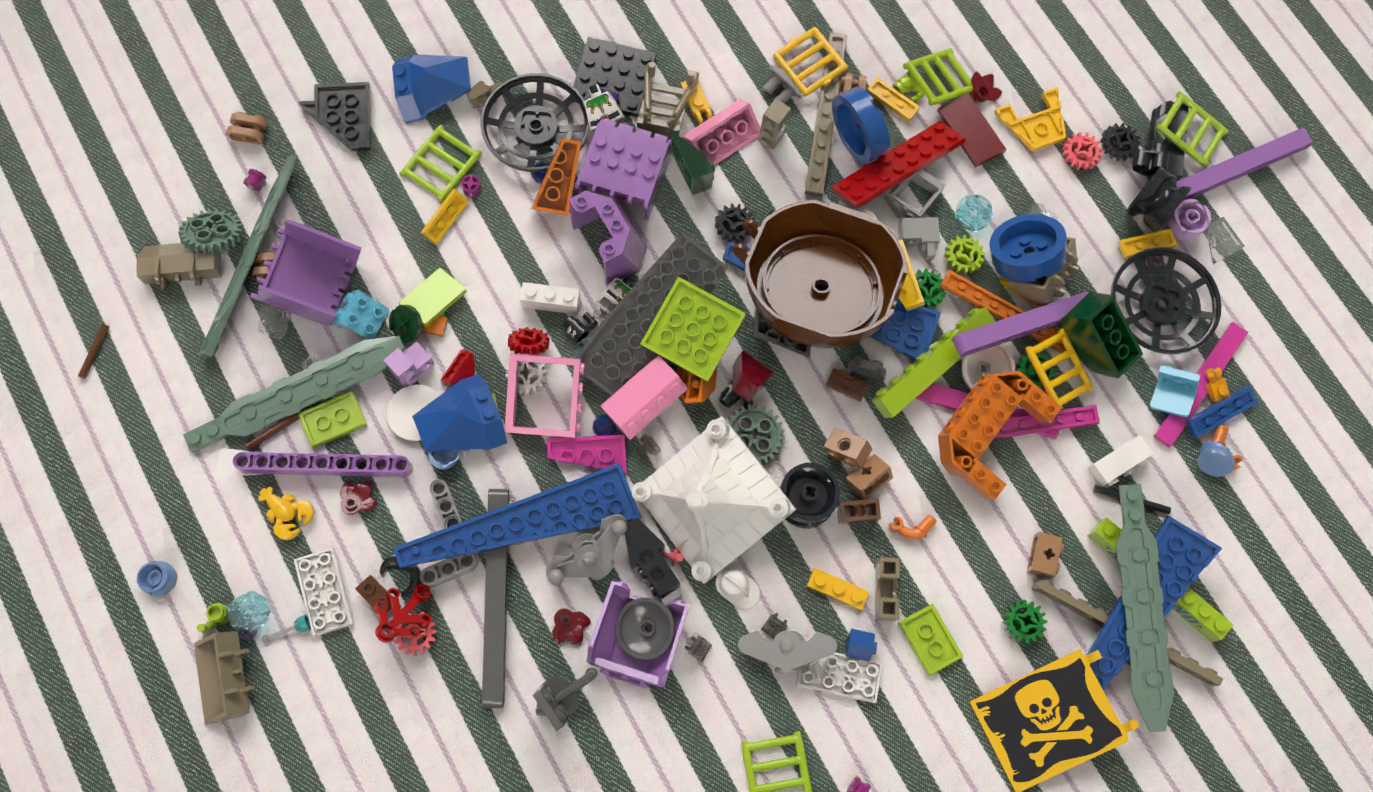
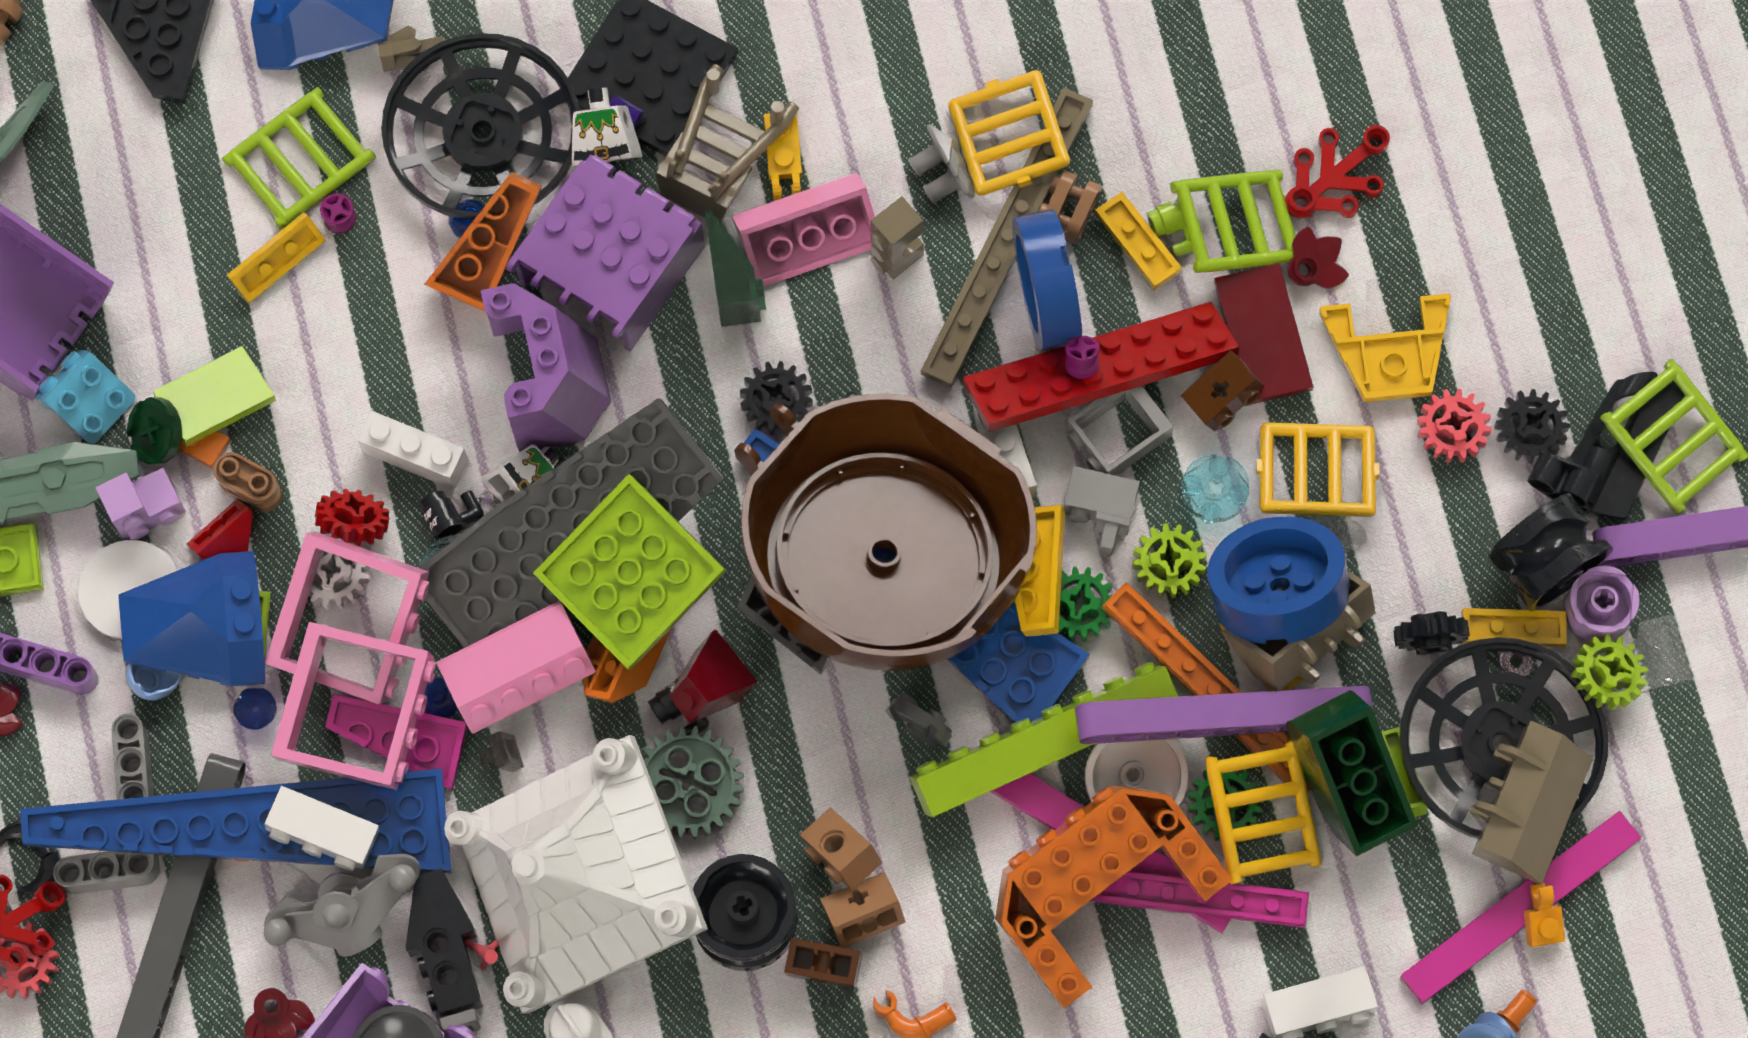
camera: 25 degrees right, 0 degrees up
(465, 337) = (247, 482): none -> medium nougat brick
(504, 452) = (253, 698): none -> clear blue plate
(565, 513) = (321, 829): none -> white brick
(597, 449) = (301, 689): none -> bright pink window
(847, 385) = (880, 738): reddish brown plate -> none
(891, 159) = (1082, 357): none -> magenta wheel
(964, 152) = (1206, 394): none -> reddish brown brick
(978, 45) = (1334, 176): none -> red plant
(1021, 209) = (1301, 505): none -> yellow bar
(1111, 255) = (1431, 633): none -> black gear
(1175, 391) = (1460, 908): medium azure bracket -> none
(1192, 327) = (1531, 801): none -> dark tan piece
(1206, 252) = (1604, 673): none -> lime gear
(1221, 411) = (1536, 966): blue plate -> none

